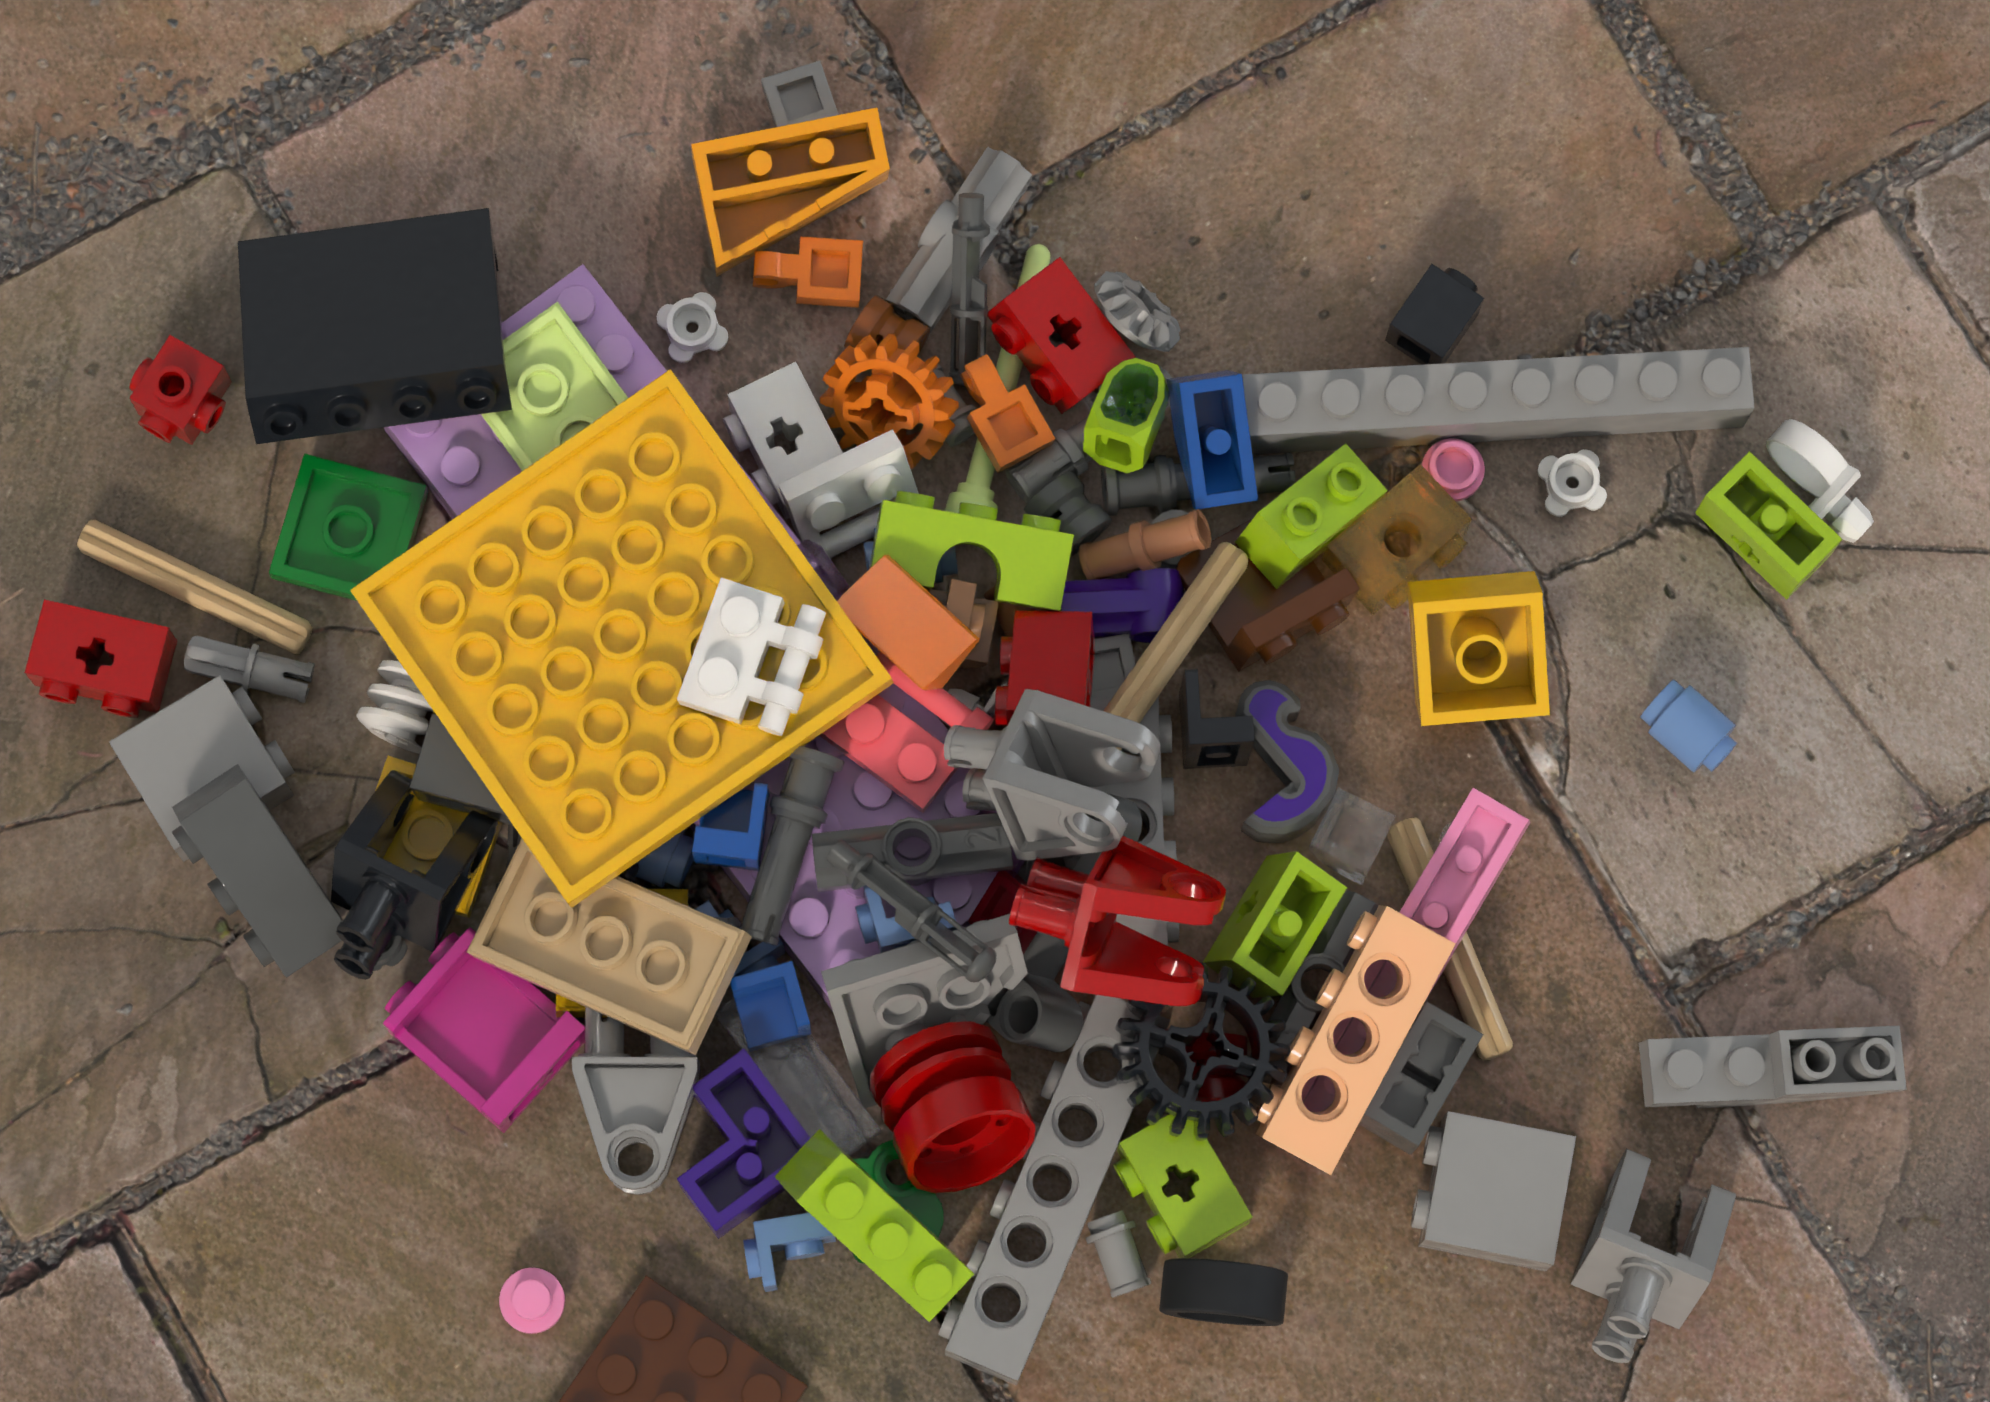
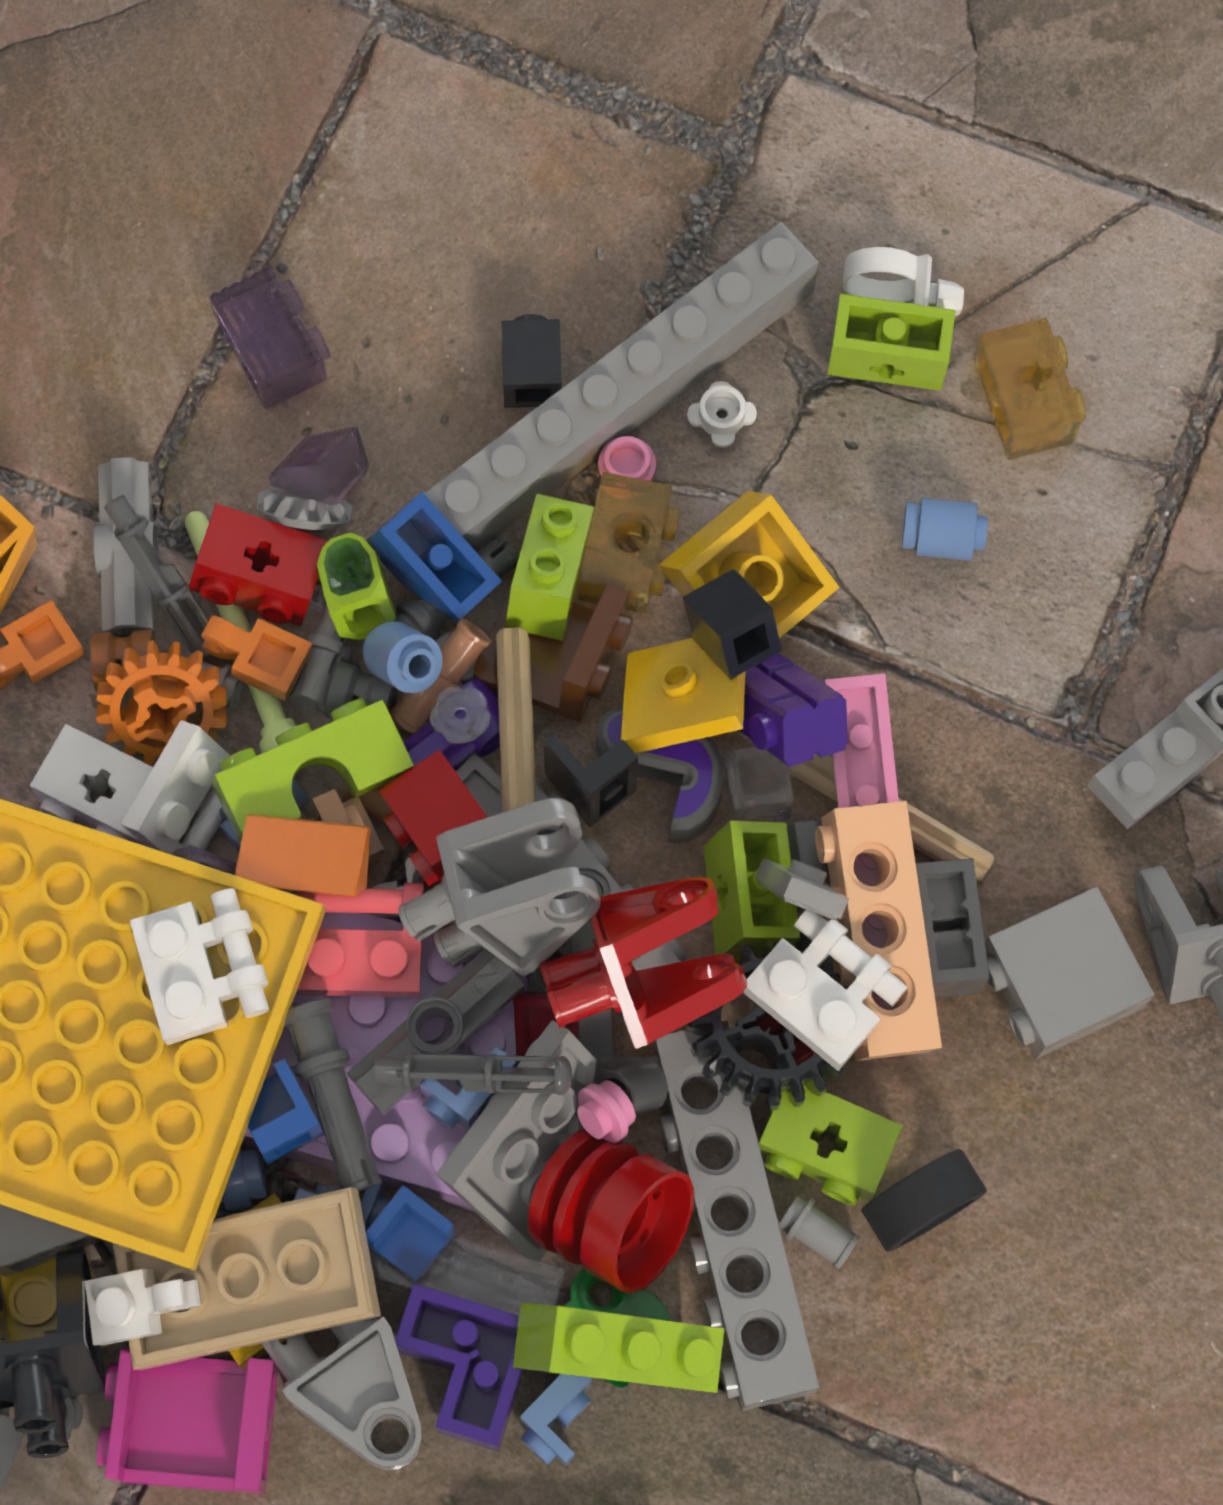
camera: 35 degrees left, 5 degrees down
(501, 897) = (131, 1304): none -> white plate
(1003, 1021) = (605, 1111): none -> bright pink plate
(1120, 508) = (402, 657): none -> medium blue brick
(1135, 609) = (465, 729): none -> clear plate
(1179, 286) = (323, 466): none -> slope
(1220, 133) = (269, 337): none -> clear purple brick
(1244, 1058) = (813, 1003): none -> white plate
(1307, 954) = (802, 886): none -> light grey plate
(1341, 710) = (678, 697): none -> yellow plate
(1415, 787) = (792, 712): none -> dark purple brick
(1420, 682) = (732, 623): none -> black brick
(1840, 680) = (1027, 418): none -> clear yellow brick

